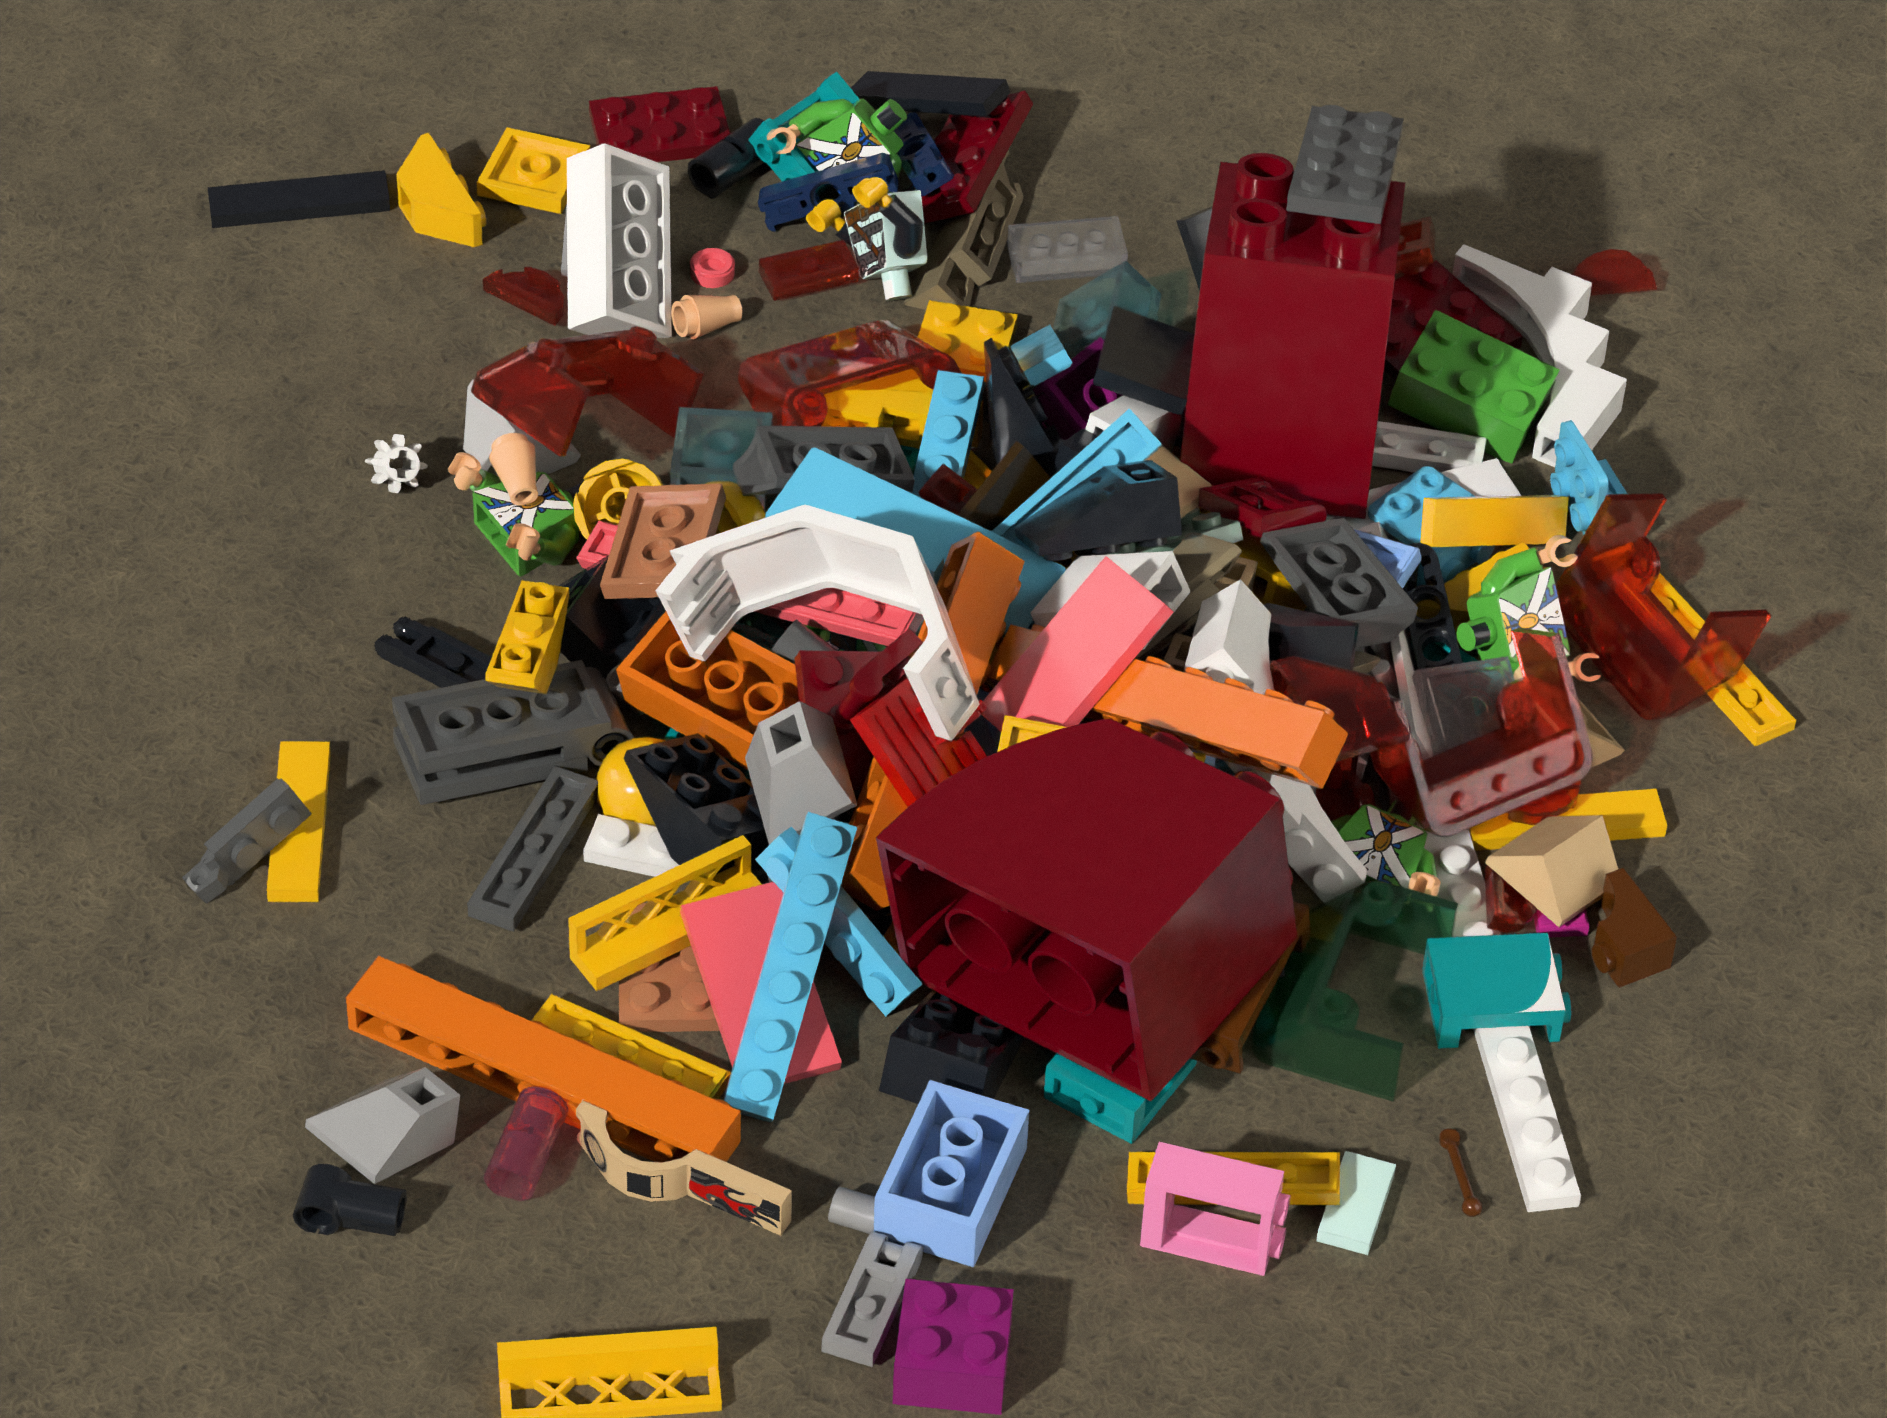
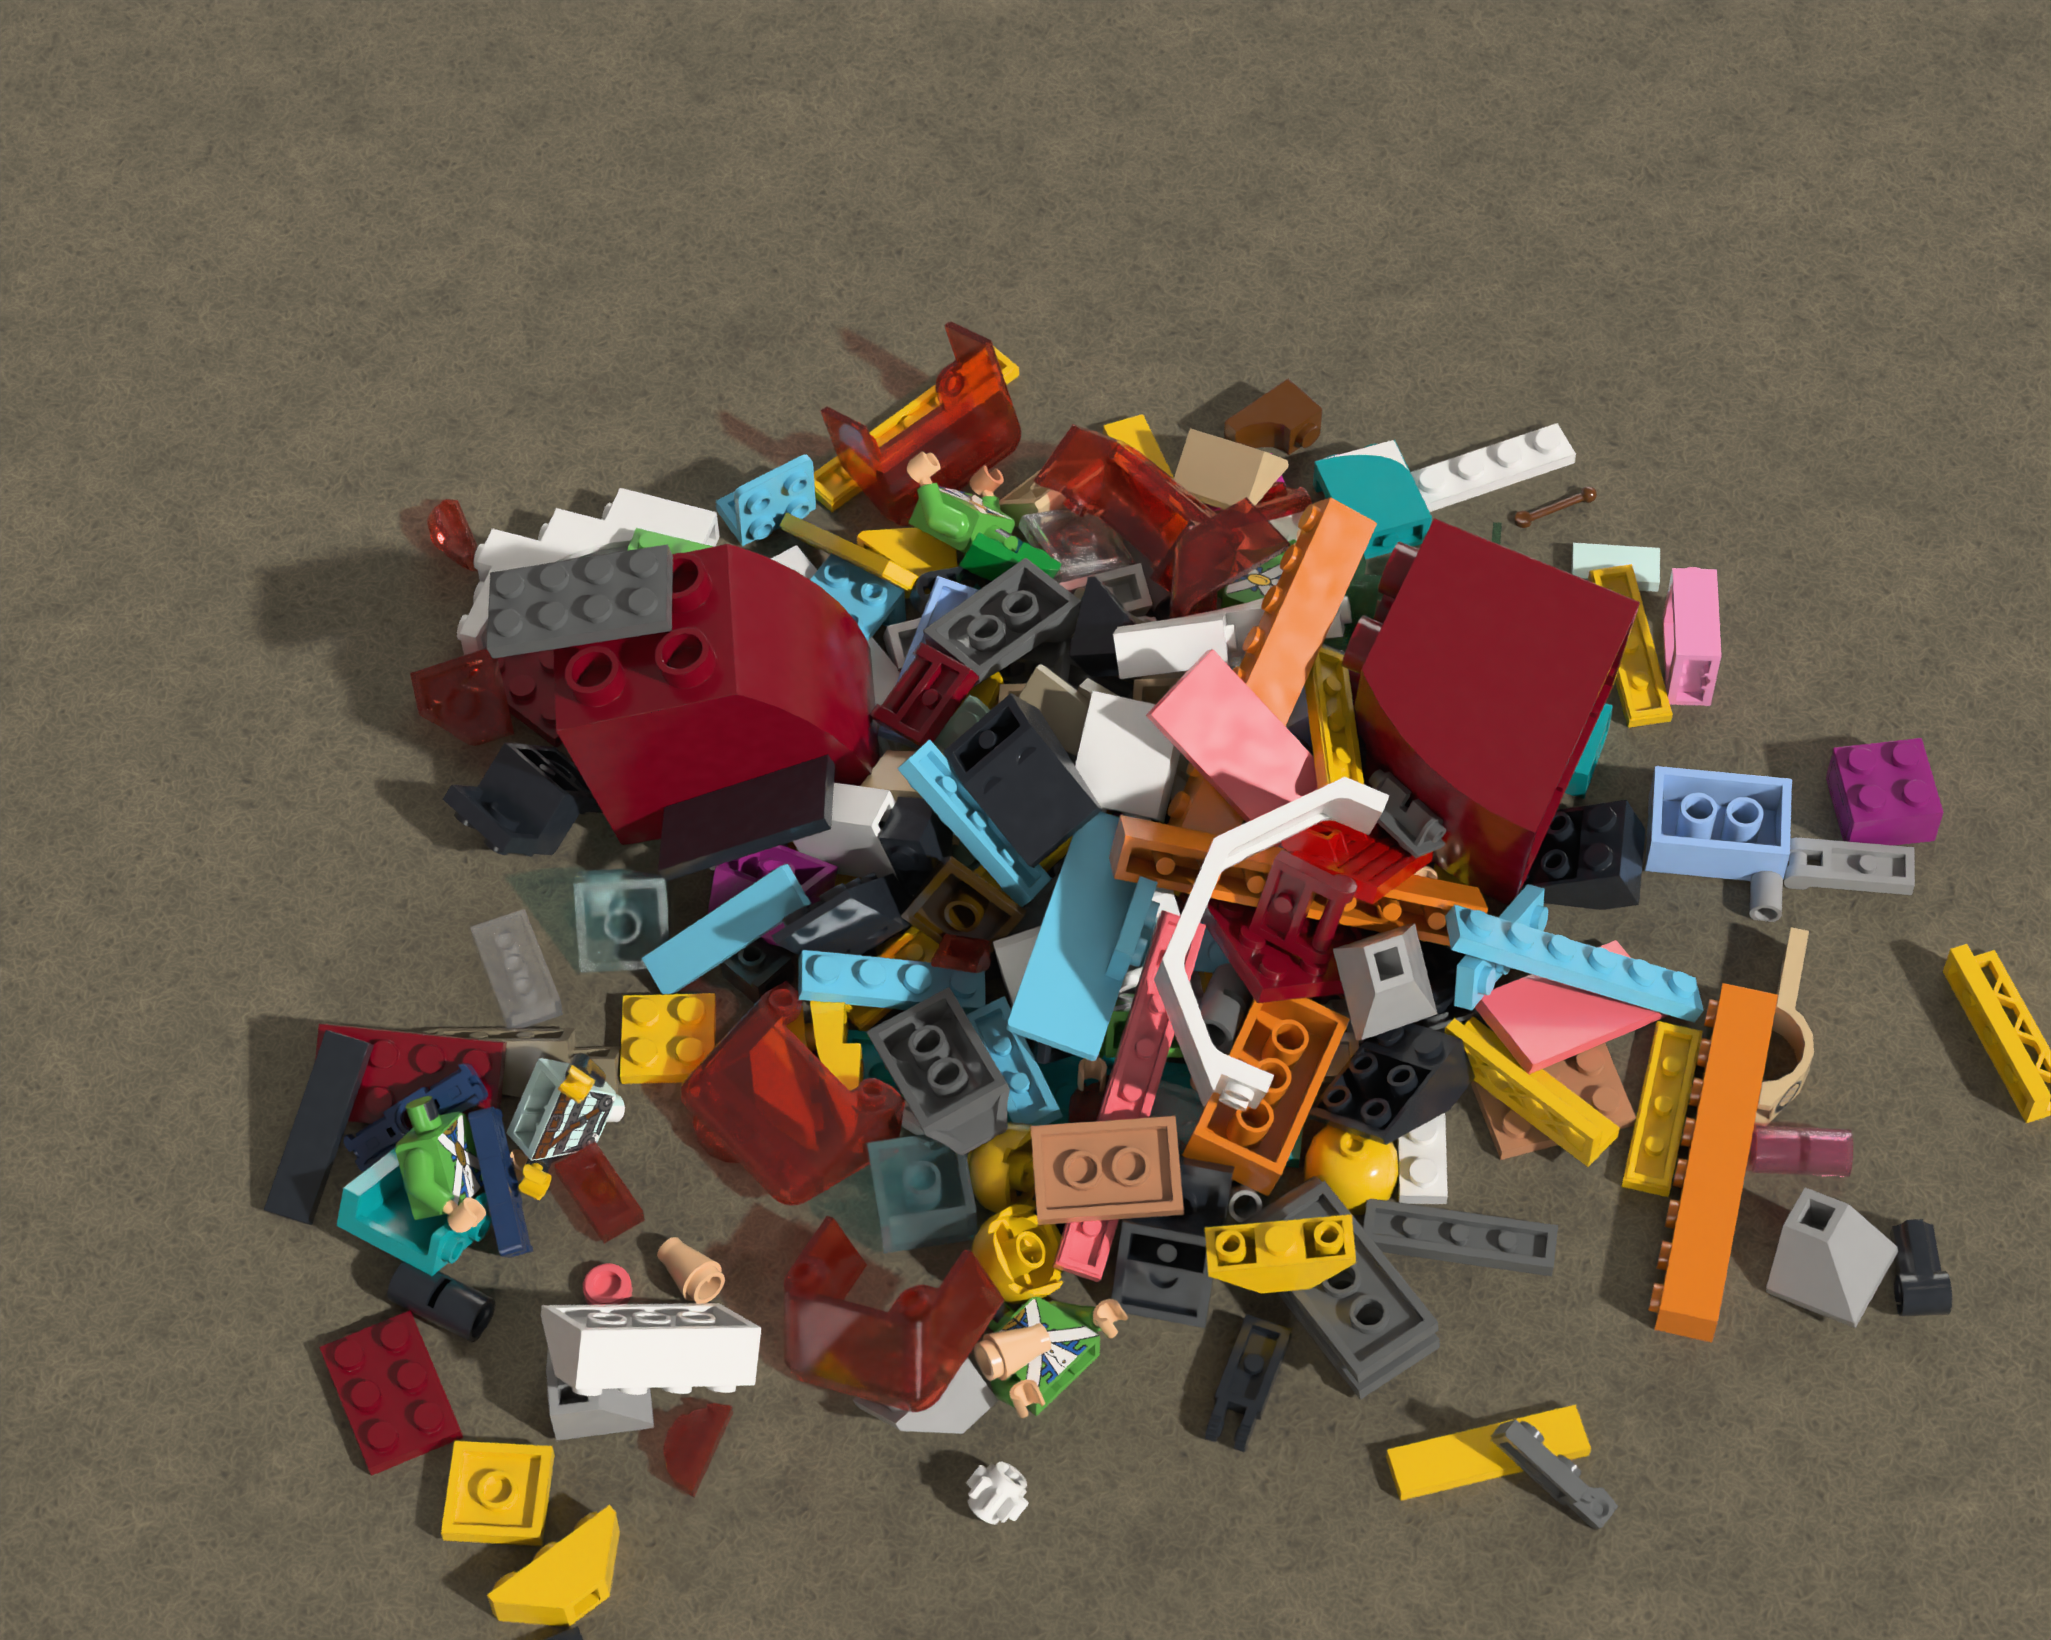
camera: 100 degrees left, 10 degrees up
(1433, 631) = (991, 558): none -> green slope

